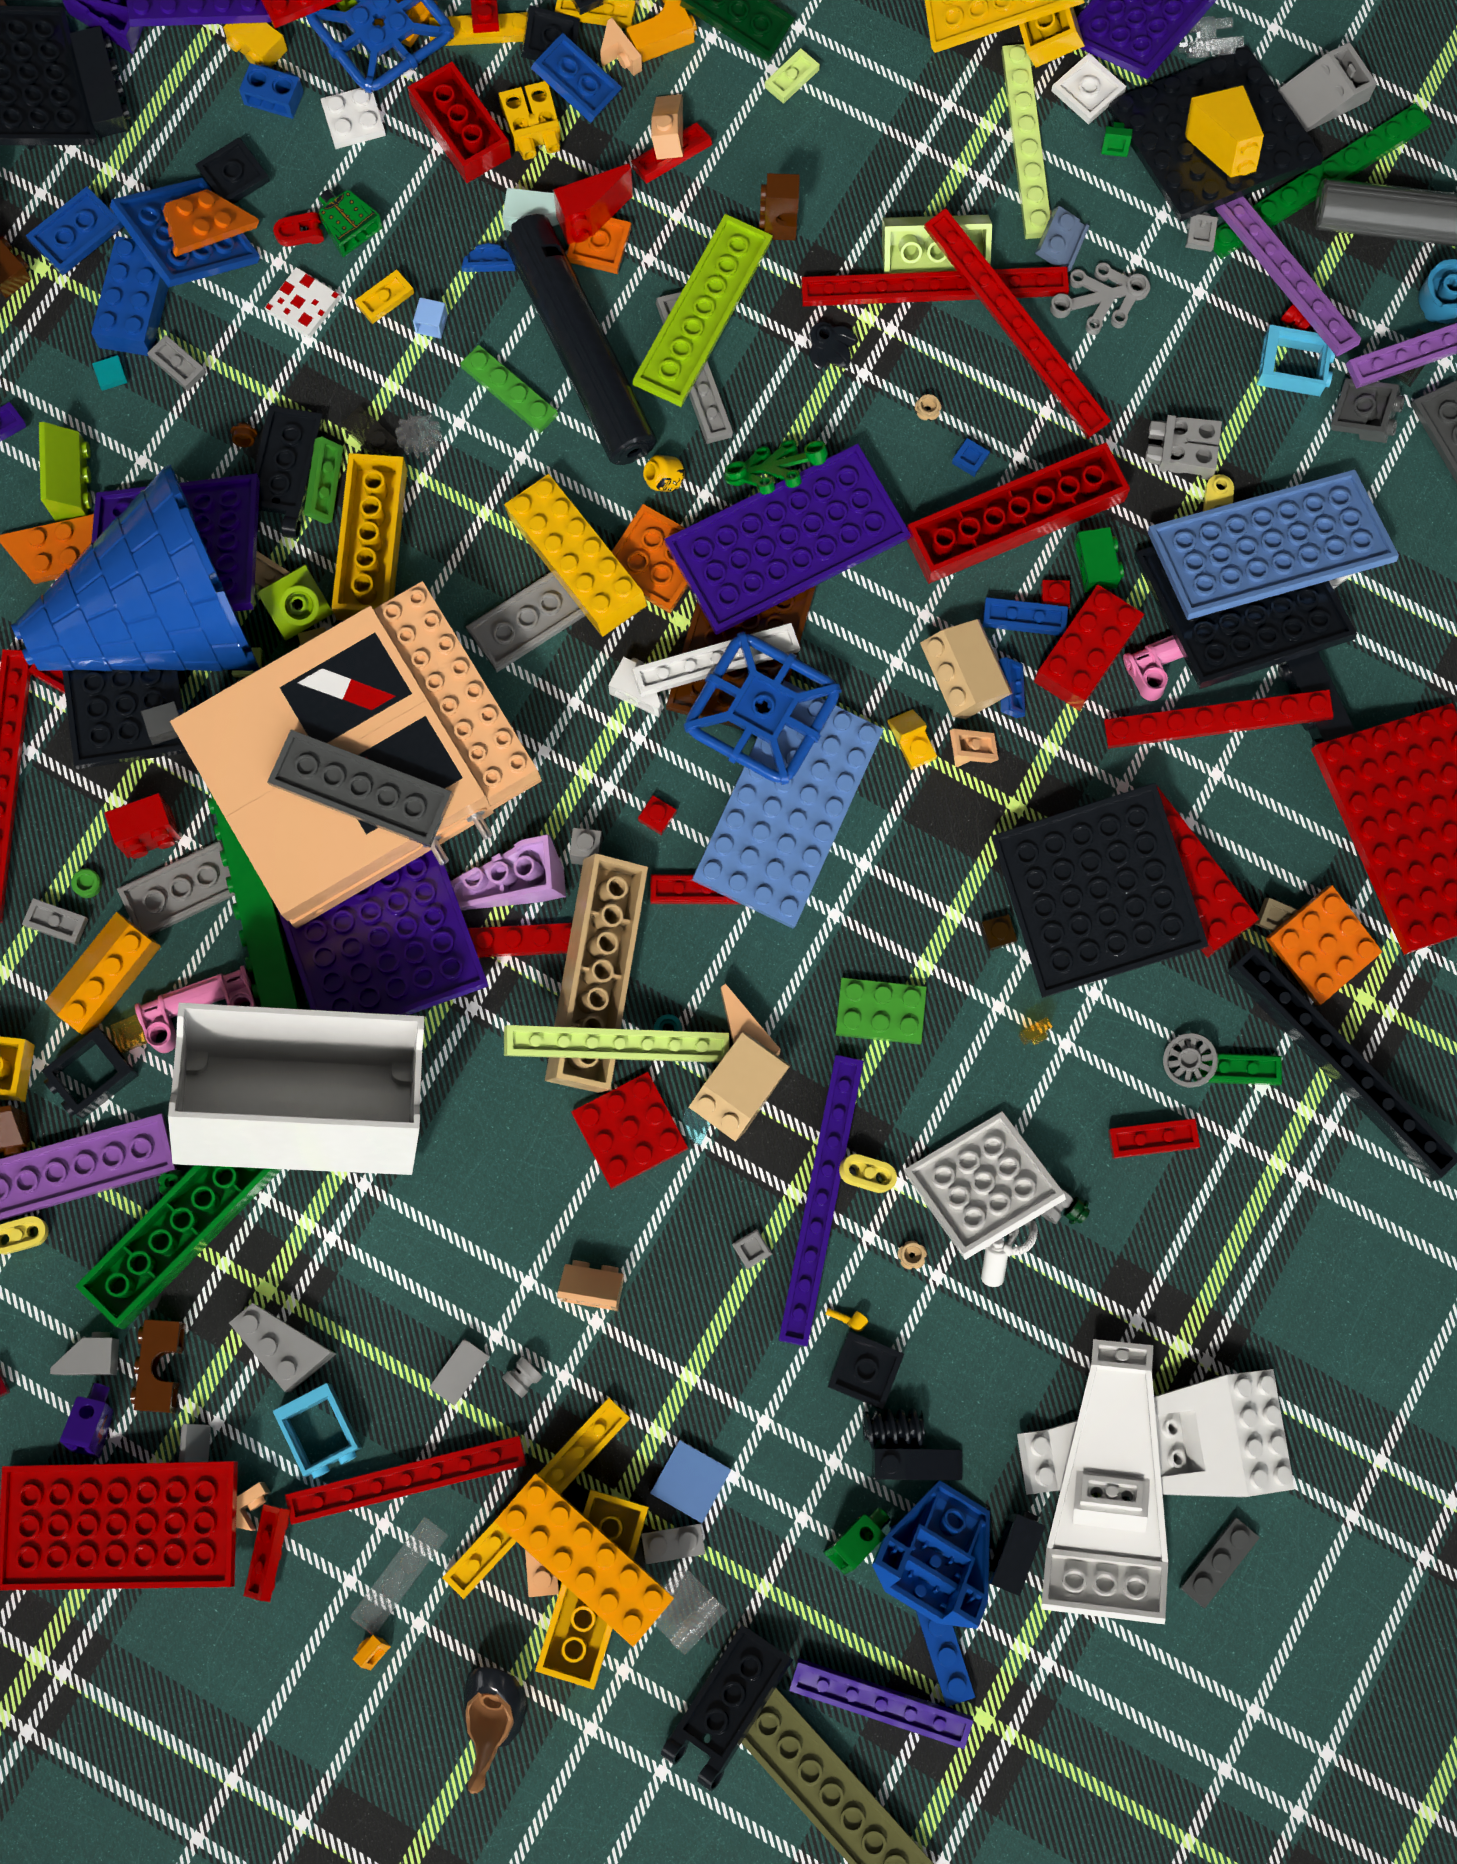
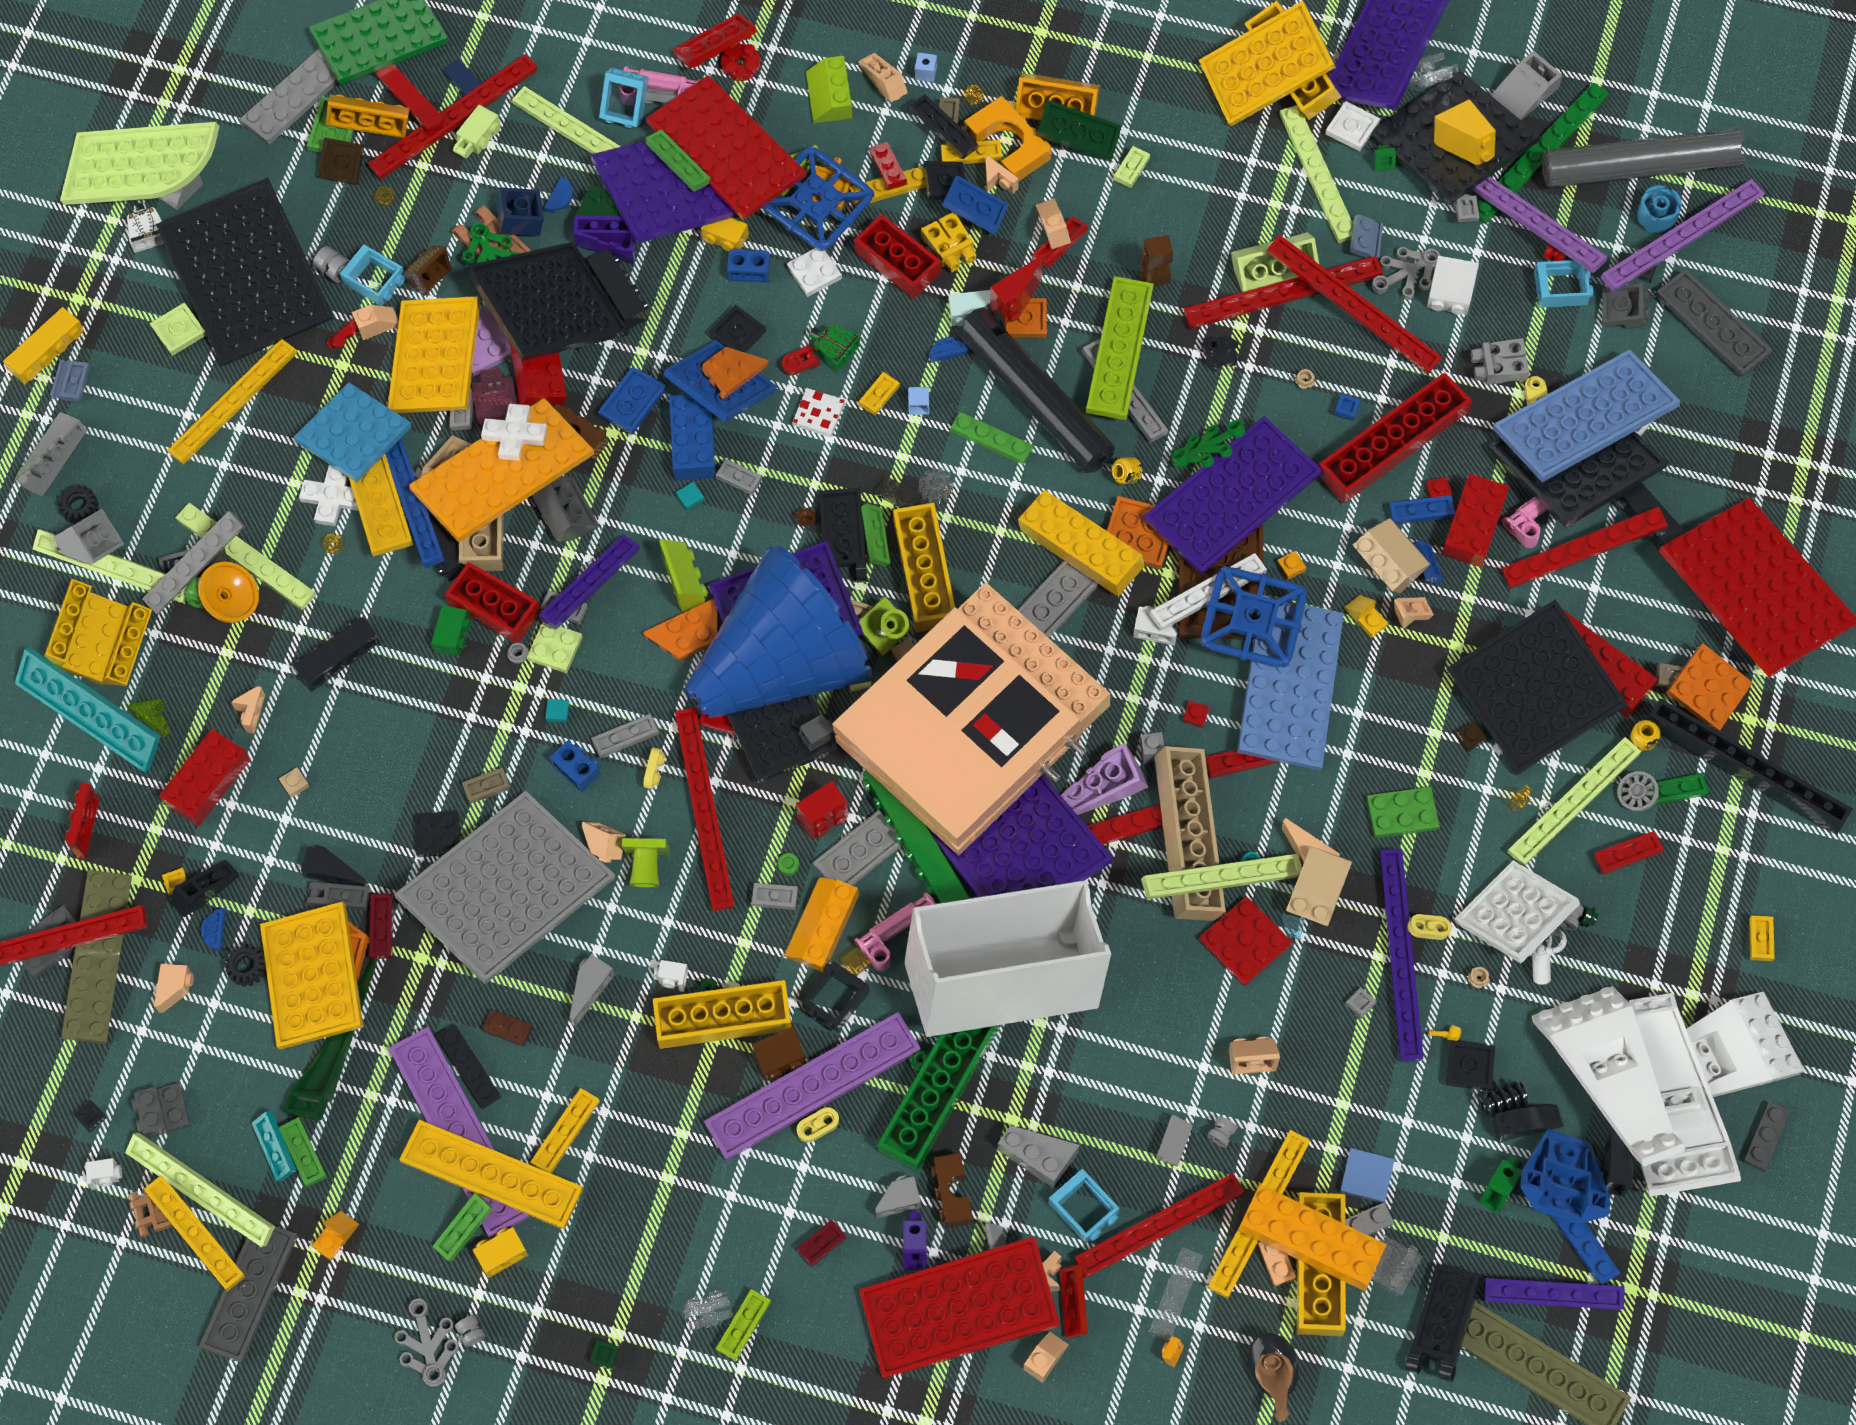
camera: 10 degrees left, 10 degrees down
(209, 1616) = (1045, 1356): none -> light nougat slope
(360, 788) = (989, 735): dark grey plate -> none
(837, 648) = (1291, 565): none -> light orange plate
(1040, 1409) = (1609, 1058): none -> white wing
(1098, 559) = (1462, 456): green brick -> none
(1104, 1053) = (1574, 801): none -> yellowish green plate
(1150, 329) = (1452, 285): none -> white slope
(1229, 985) = (1645, 735): none -> yellow head
(1292, 1296) = (1761, 938): none -> yellow plate

